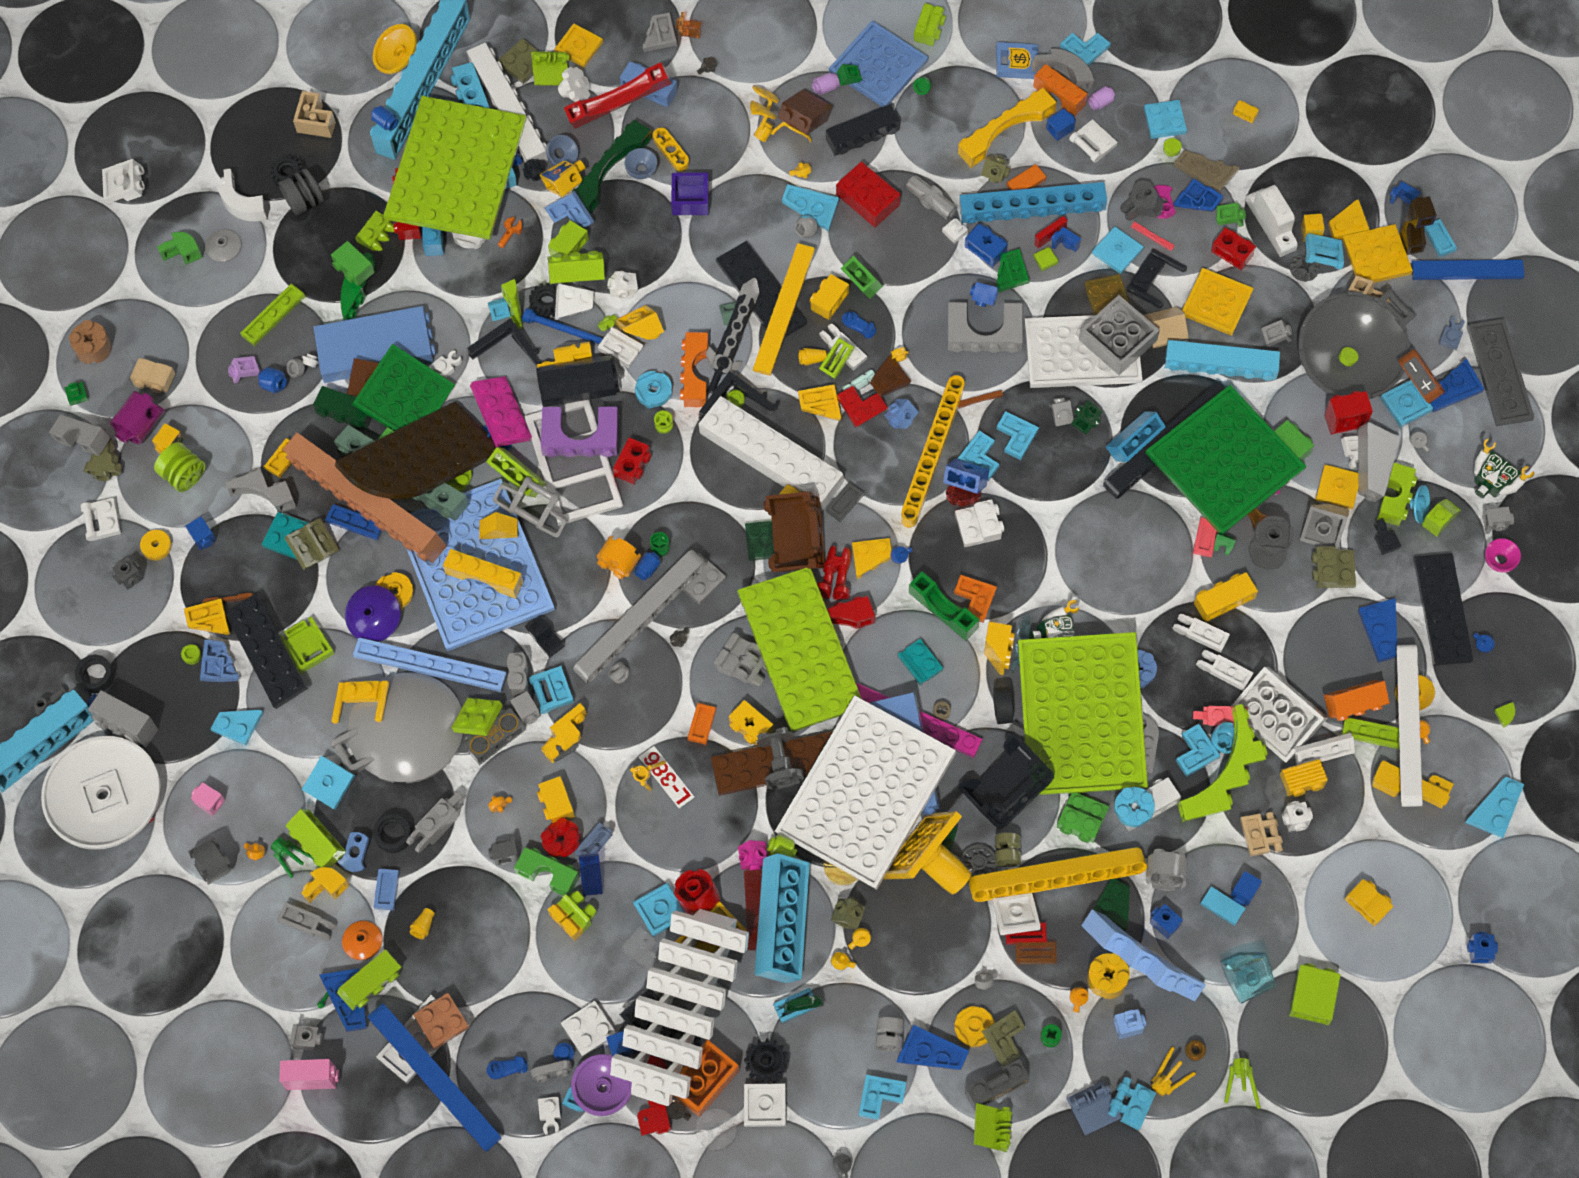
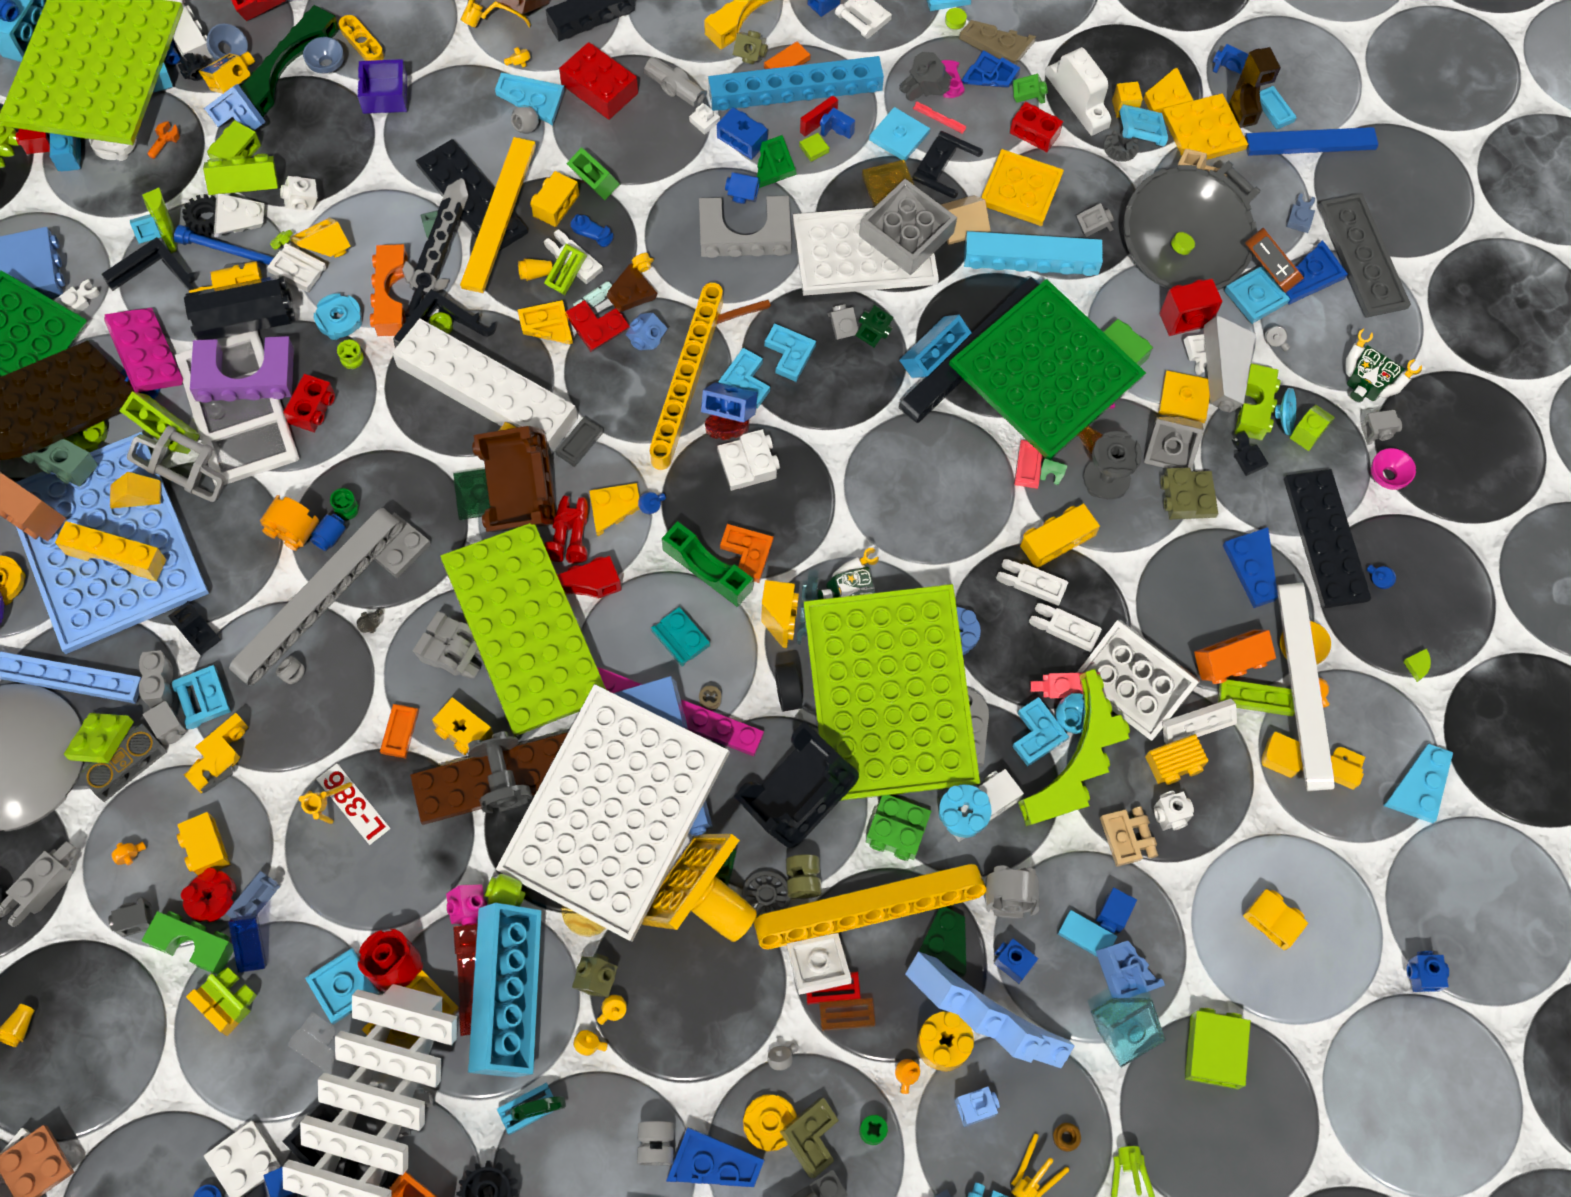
camera: 10 degrees left, 0 degrees up
(1250, 933) = (1126, 971): none -> medium blue slope

